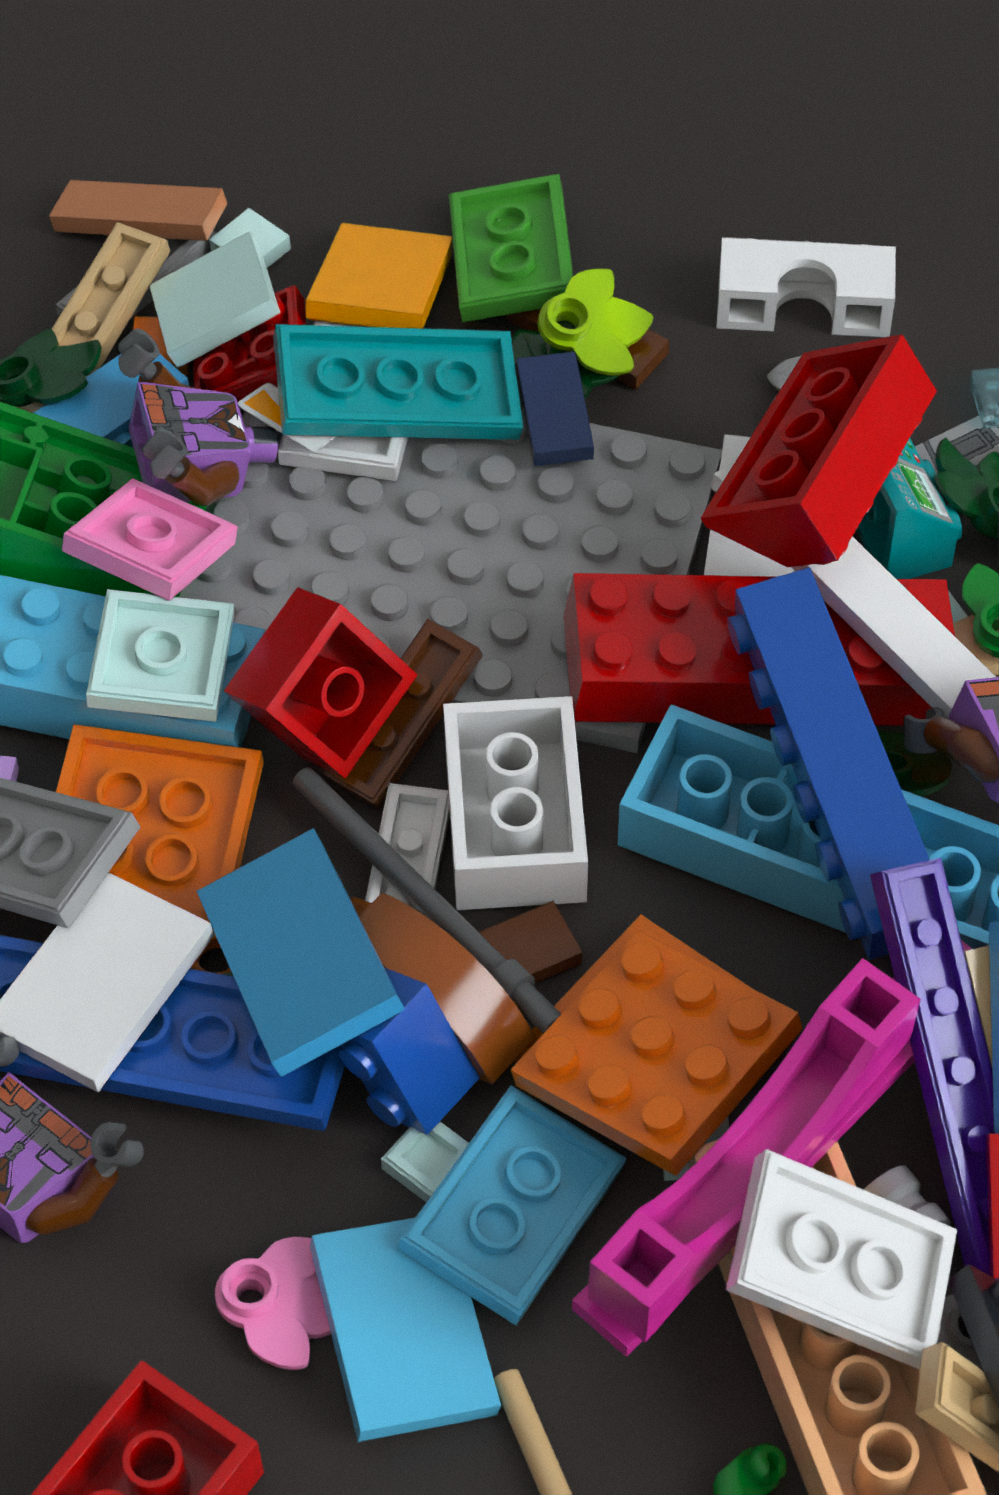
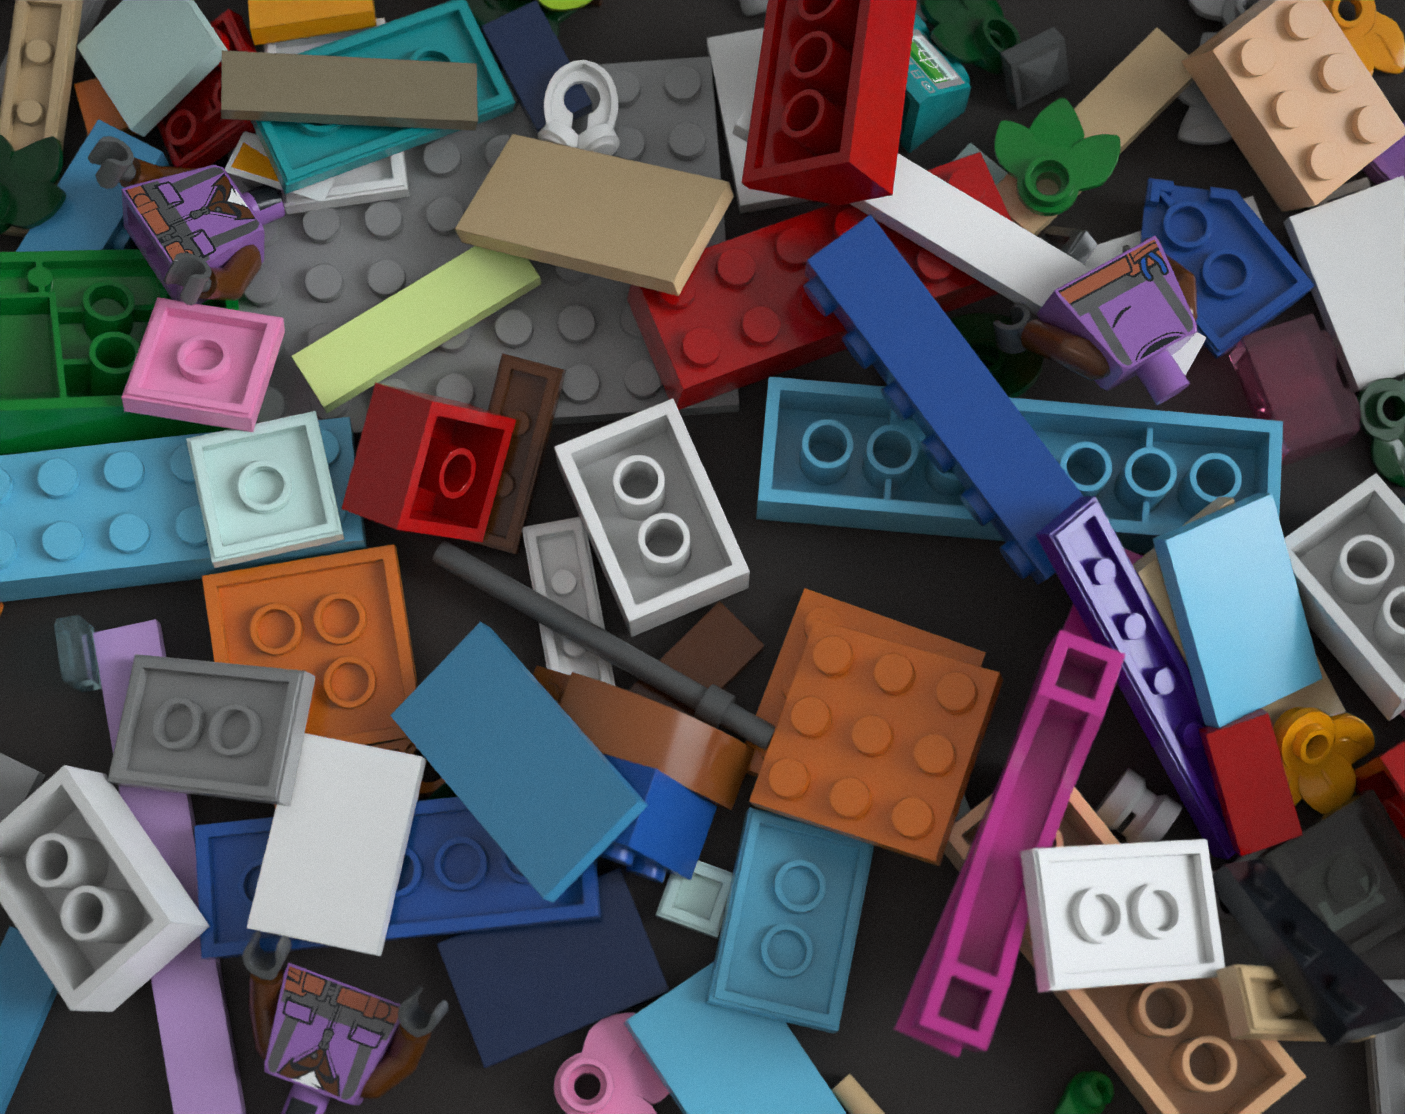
camera: 20 degrees left, 20 degrees up
(257, 1180) = (553, 977): none -> dark blue tile
(367, 572) = (413, 323): none -> yellowish green tile
(373, 364) = (348, 90): none -> dark tan tile
(559, 522) = (595, 213): none -> tan tile
(586, 478) = (600, 128): none -> white piece

